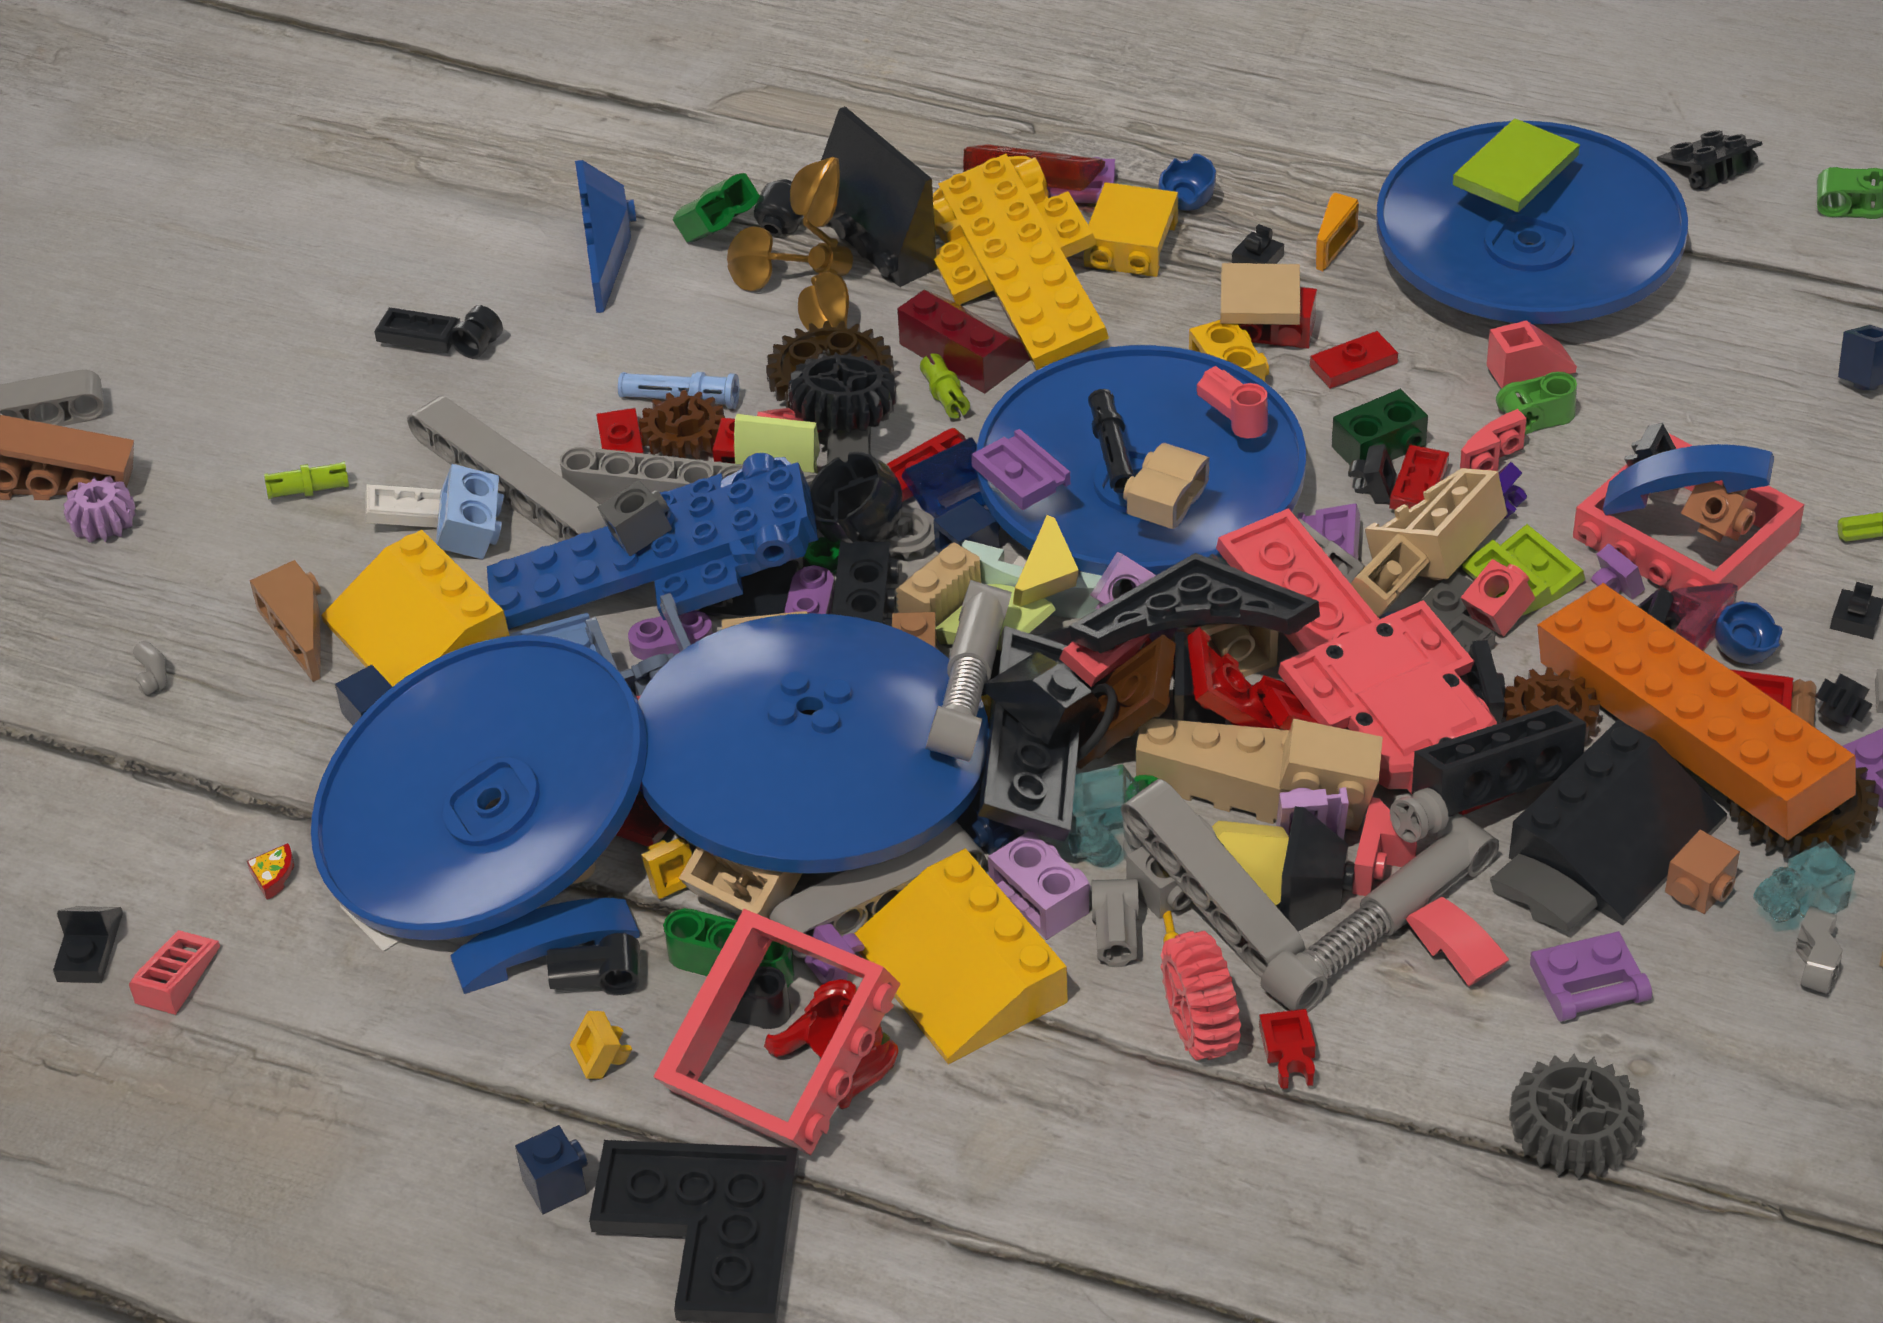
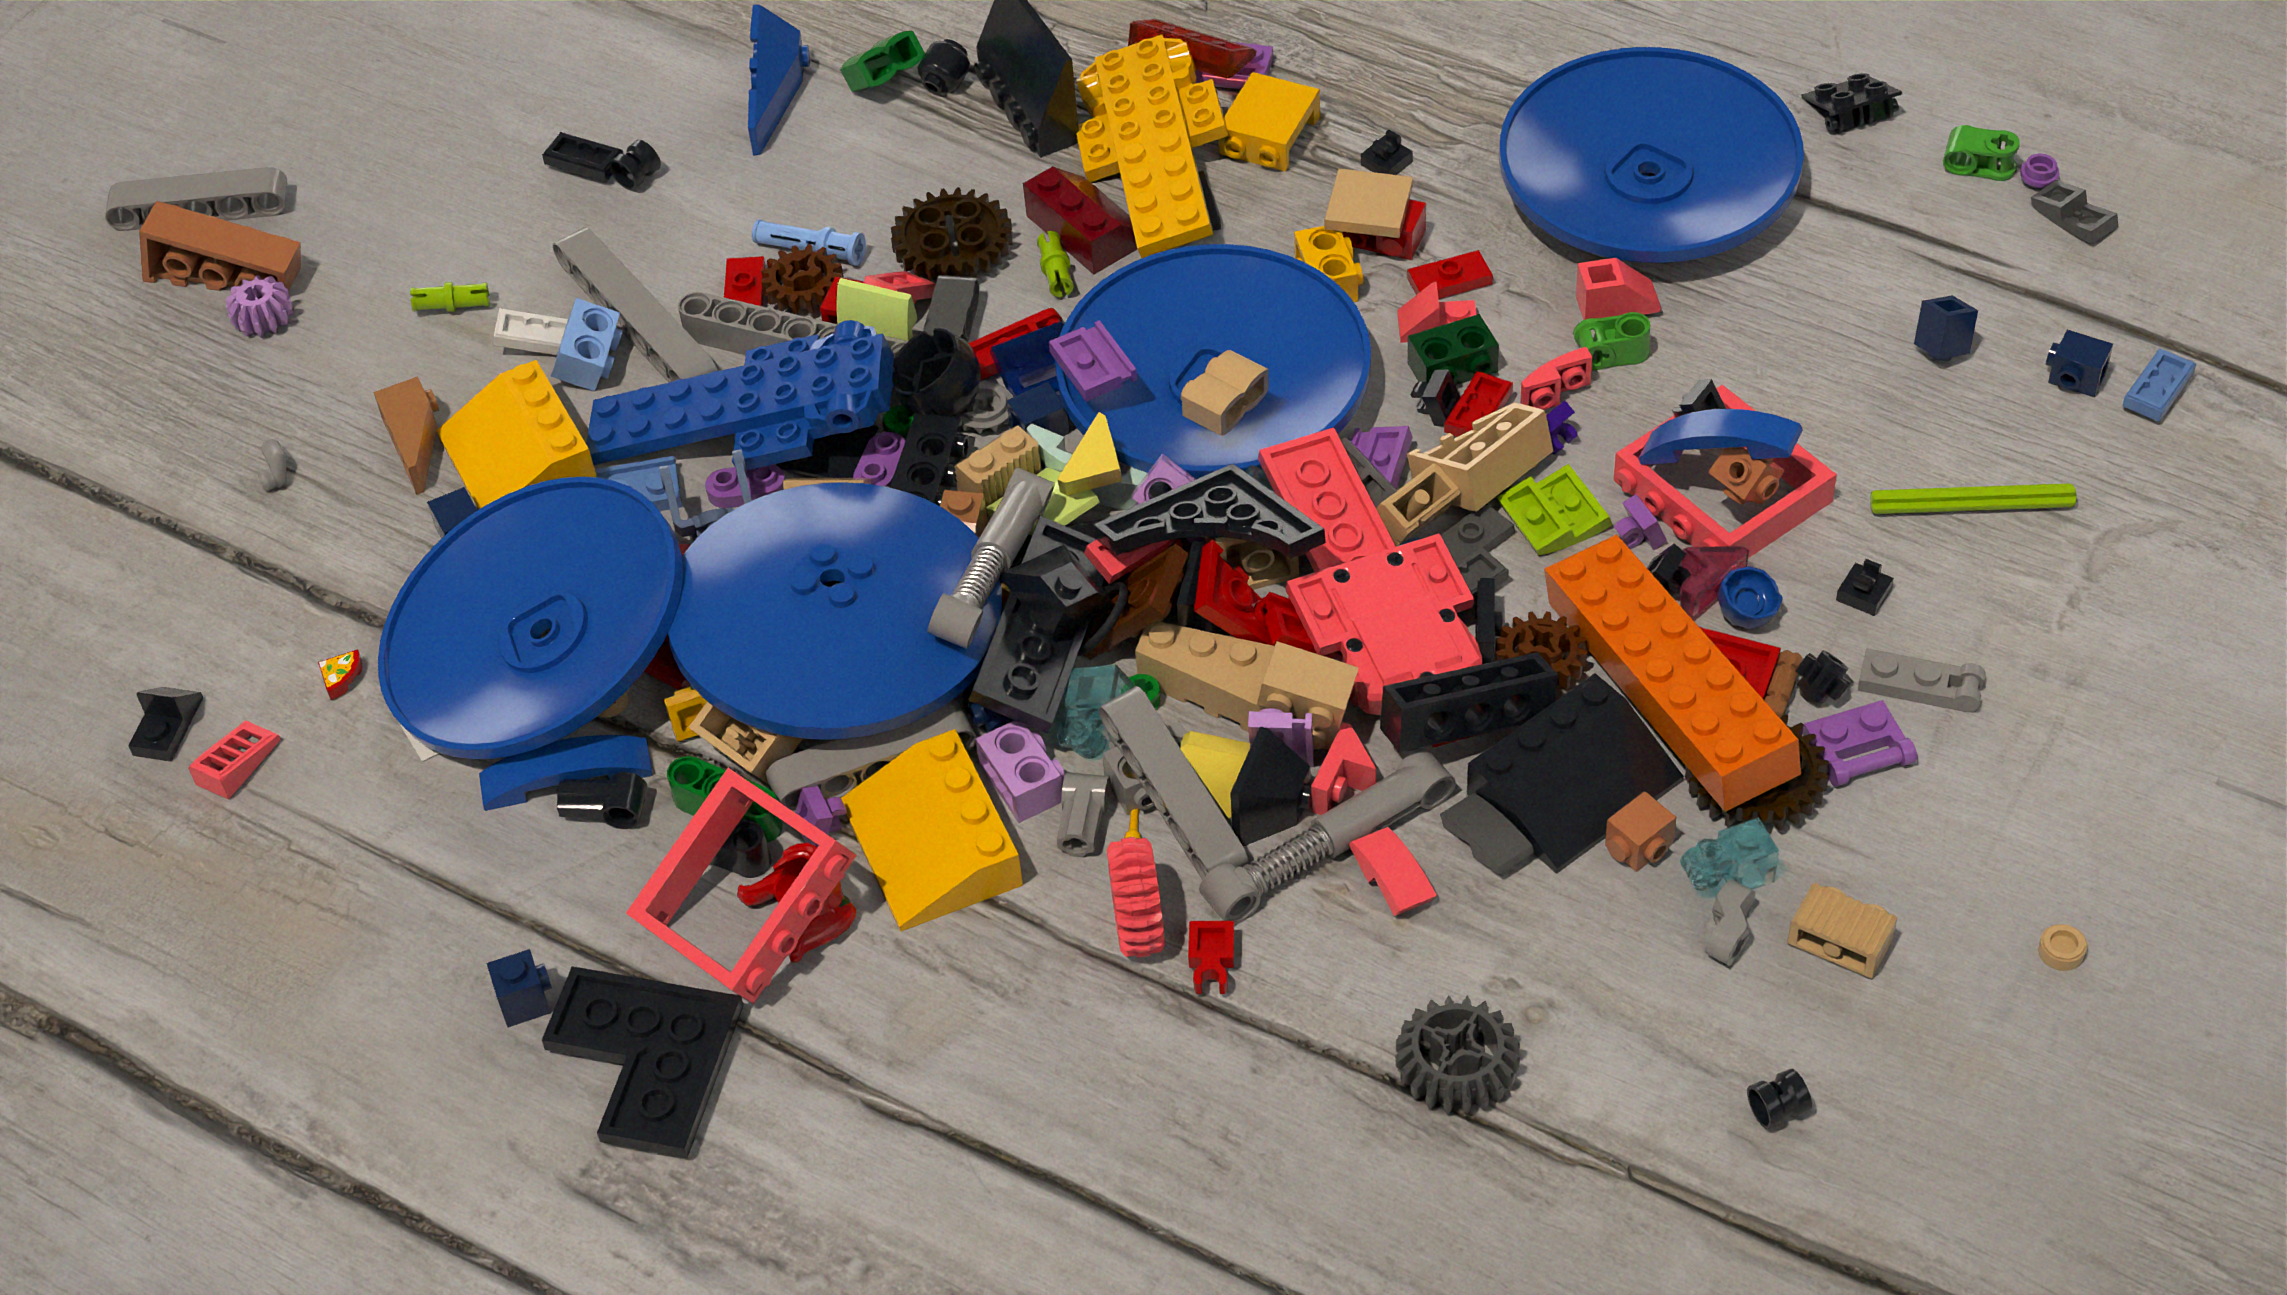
camera: 10 degrees right, 5 degrees up
(598, 1045) = (587, 875): yellow tile -> none
(635, 517) = (724, 371): dark grey brick -> none
(750, 256) = (958, 67): pearl gold plant -> none
(842, 392) = (949, 264): black gear -> none
(1109, 429) = (1184, 328): black pin -> none
(1191, 179) = (1336, 78): blue hair -> none
(1241, 403) = (1311, 313): coral piece -> none
(1337, 228) = (1465, 141): light orange slope -> none
(1343, 393) = (1427, 312): none -> coral slope
(1419, 815) = (1378, 747): light grey wheel -> none
(1501, 612) = (1522, 549): coral brick -> none
(1516, 165) = (1647, 94): lime tile -> none
(1586, 966) = (1509, 910): medium lavender plate -> none

